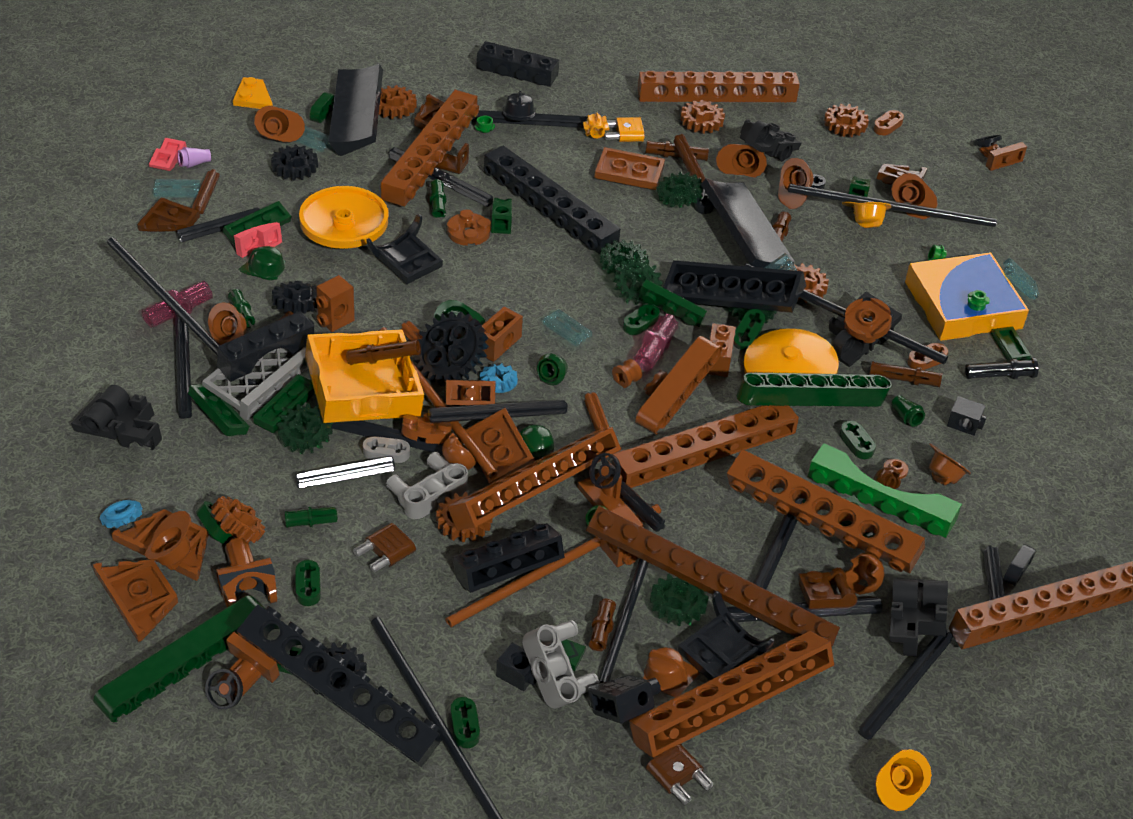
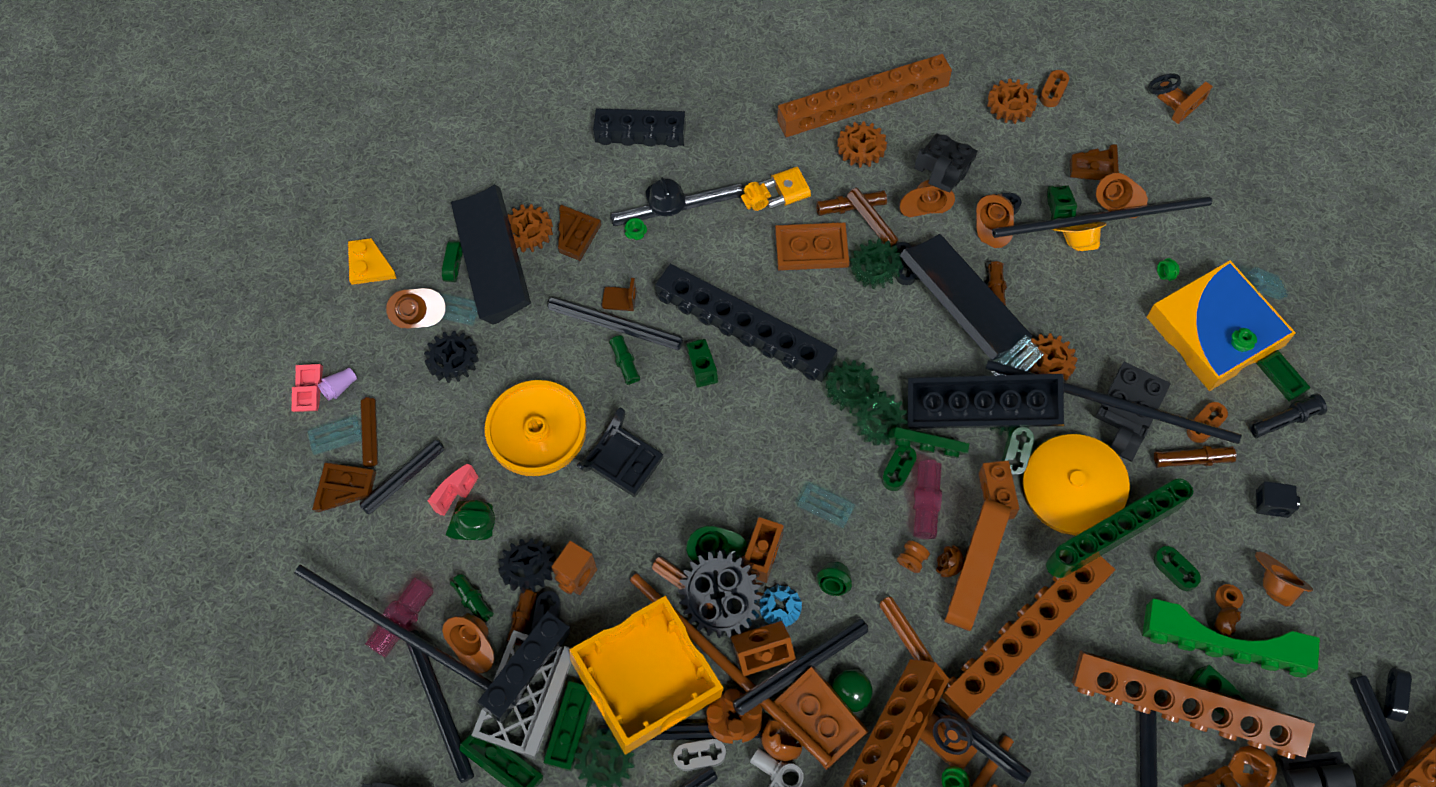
camera: 10 degrees left, 20 degrees up
(273, 213) = (444, 463): dark green plate -> none
(375, 353) = (656, 639): reddish brown pin -> none
(429, 148) = (602, 217): dark orange brick -> none
(467, 219) = (666, 380): dark orange plate -> none
(865, 330) = (1160, 406): dark orange plate -> none
(909, 411) = (1214, 509): dark green cone -> none

